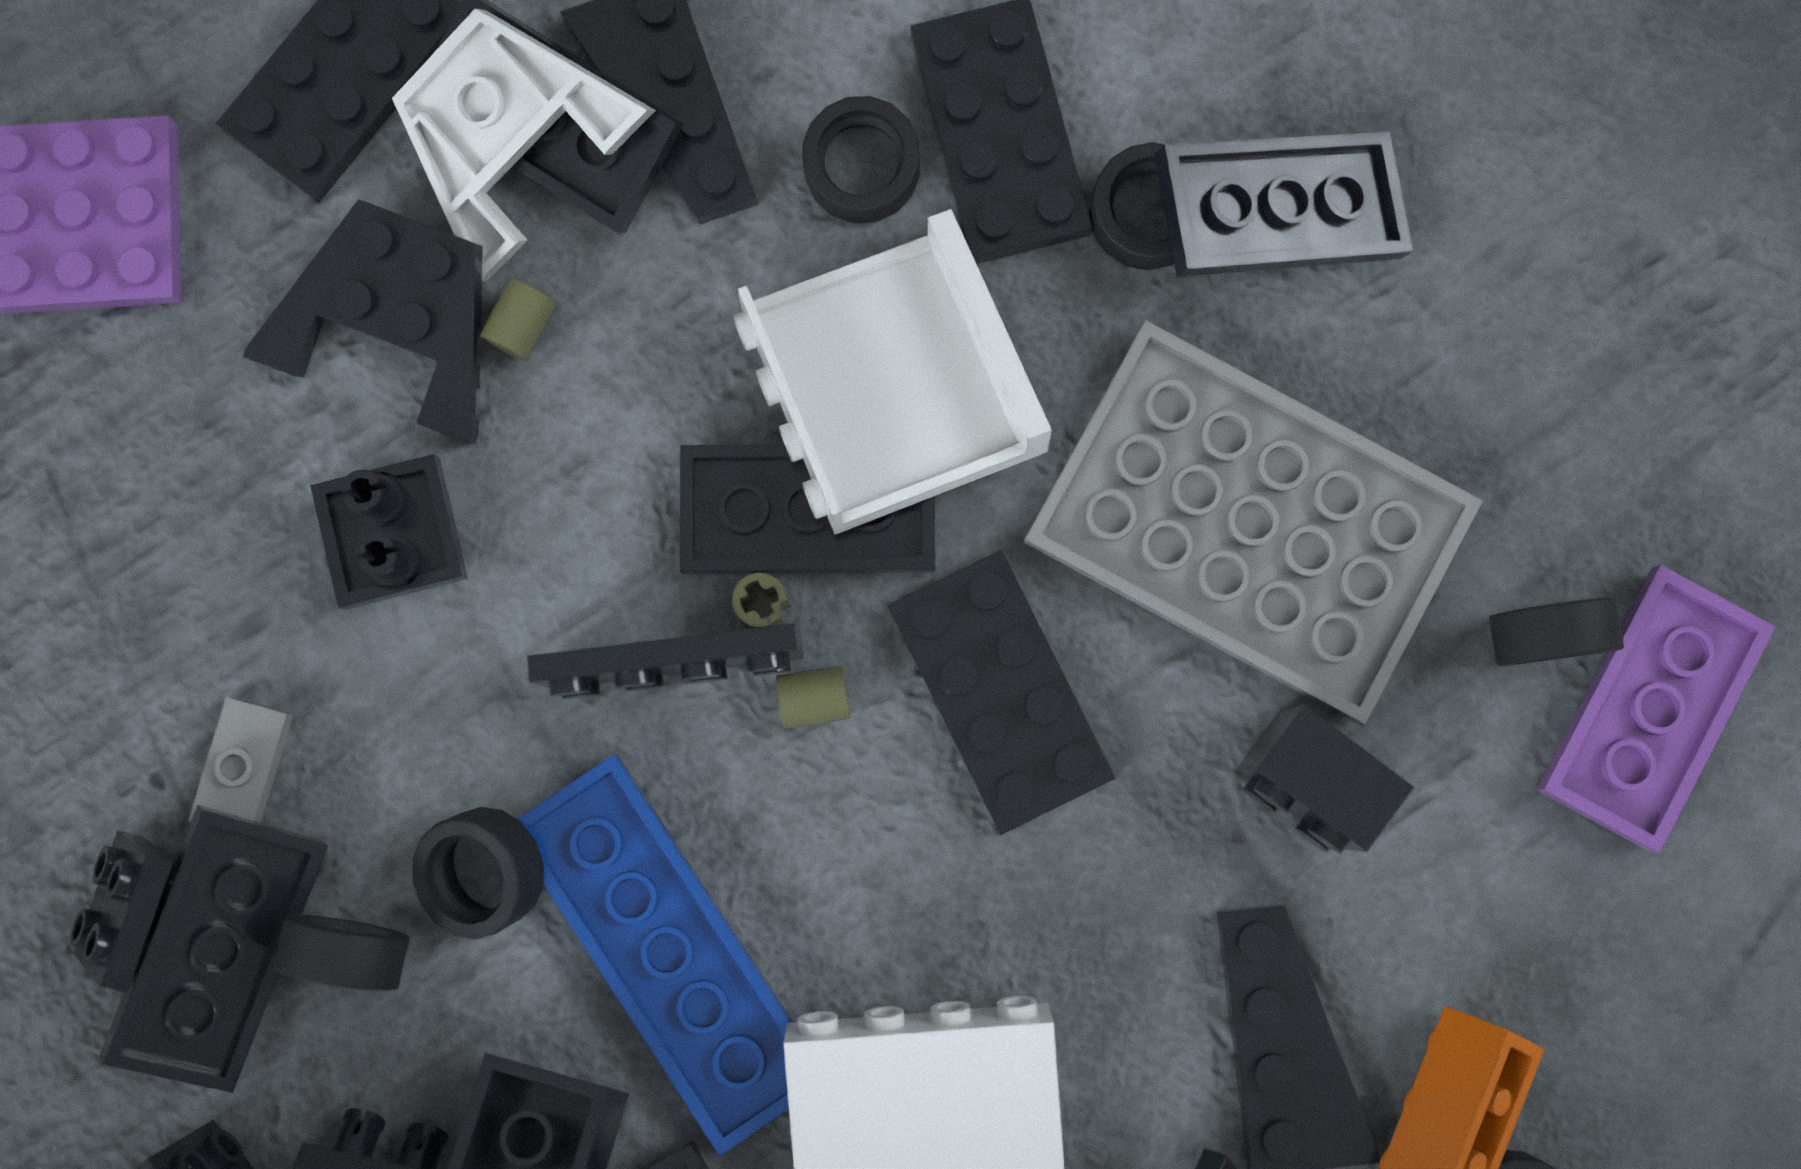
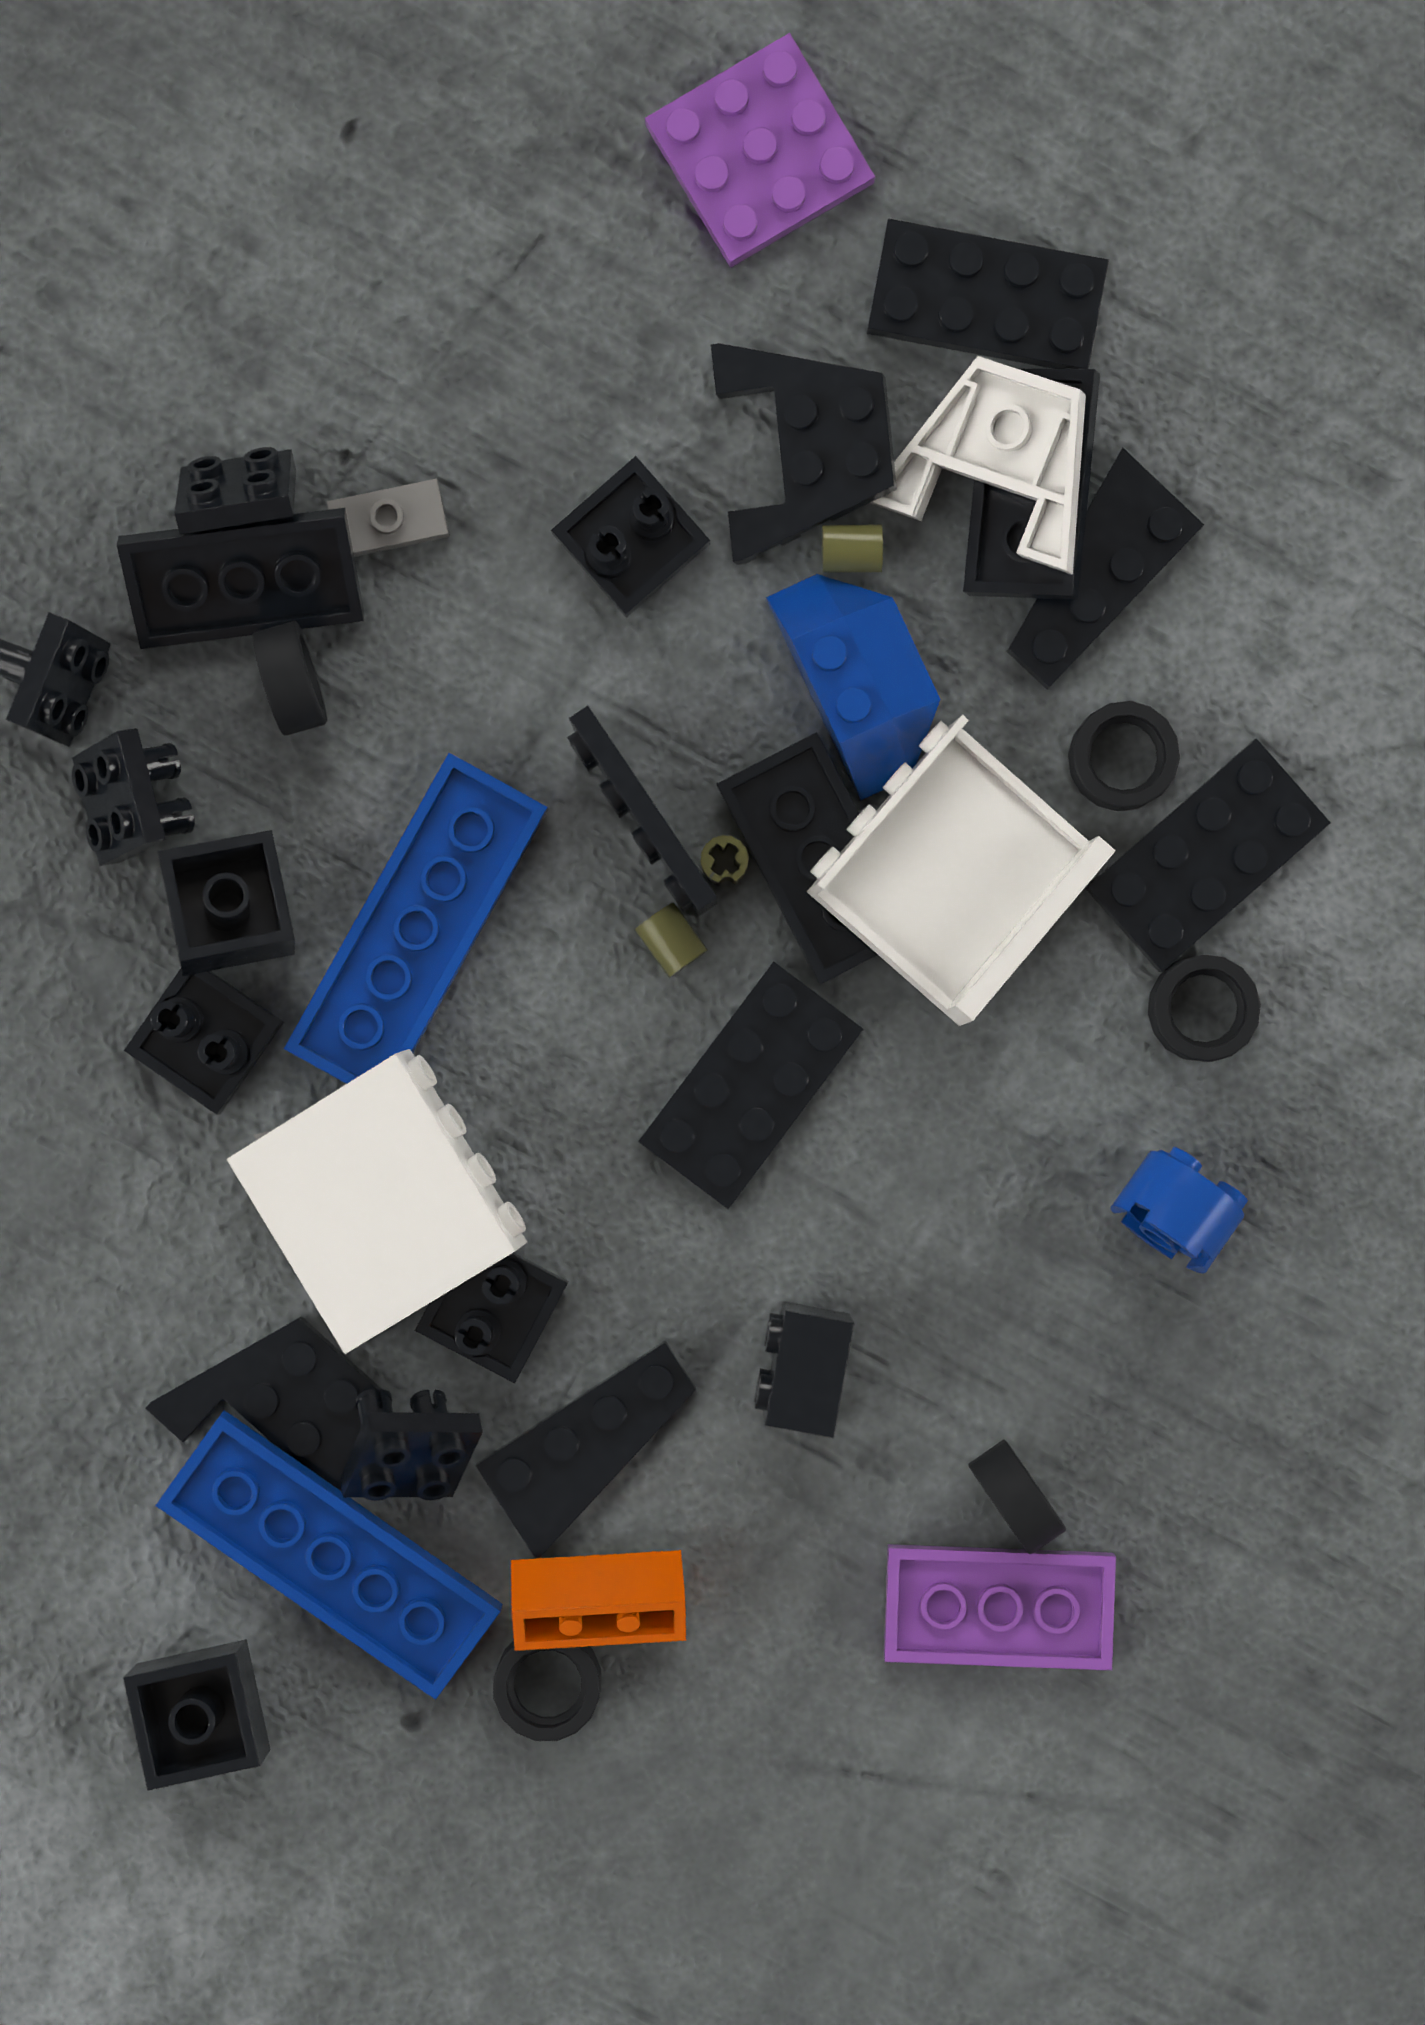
camera: 60 degrees right, 5 degrees up
(440, 889) = (375, 725): black tyre -> none
(647, 376) = (859, 675): none -> blue wedge
(1107, 1074) = (495, 1314): none -> black plate
(1254, 522) = (987, 1217): light grey plate -> none
(1282, 202) = (1257, 1114): plate -> none
(1341, 324) = (1180, 1208): none -> blue brick

